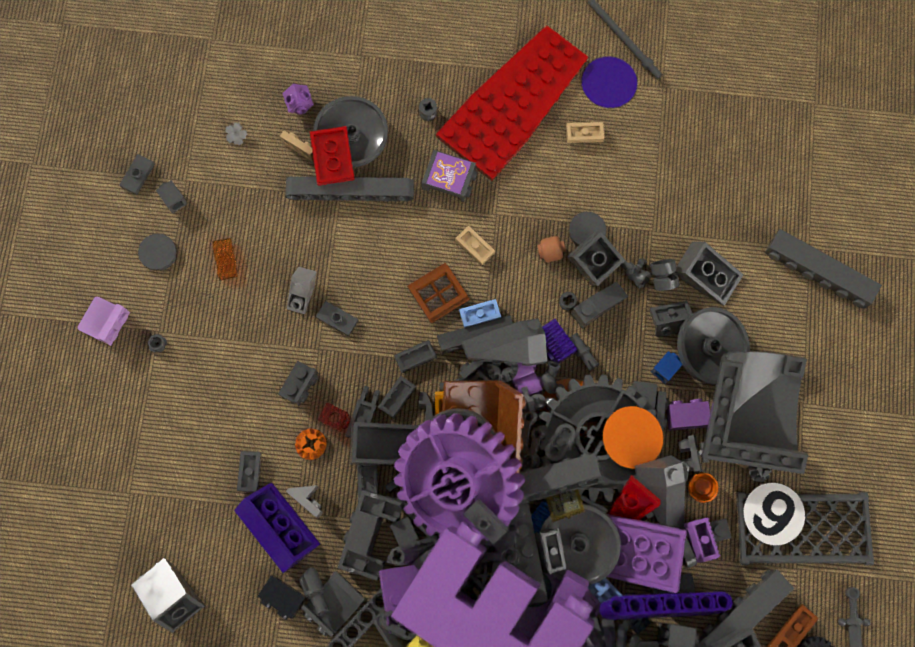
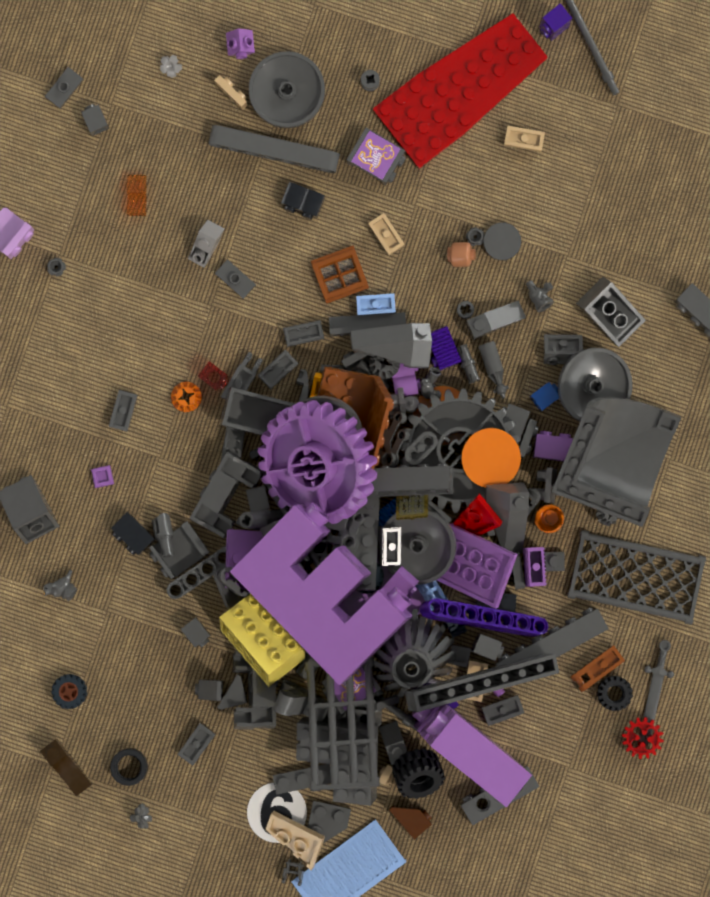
camera: 15 degrees right, 10 degrees up
(157, 252) = (71, 174): dark grey tile -> none
(240, 543) = (102, 476): none -> medium lavender tile
(276, 527) = (139, 468): dark purple slope -> none
(298, 383) = (186, 335): dark grey bracket -> none
(302, 495) = (169, 444): light grey slope -> none
(332, 155) = (262, 113): red tile -> none
(387, 230) = (303, 201): none -> black brick
(486, 521) = (333, 506): dark grey plate -> none
(560, 226) = (475, 231): none -> dark grey plate
(588, 22) = (555, 22): none -> dark purple brick
(596, 258) = (501, 274): dark grey brick -> none
(609, 82) = (563, 88): dark purple sticker -> none
(609, 349) = (493, 366): none -> dark grey wheel
(664, 274) = (565, 305): dark grey wheel -> none
(774, 514) = (611, 557): white sticker -> none

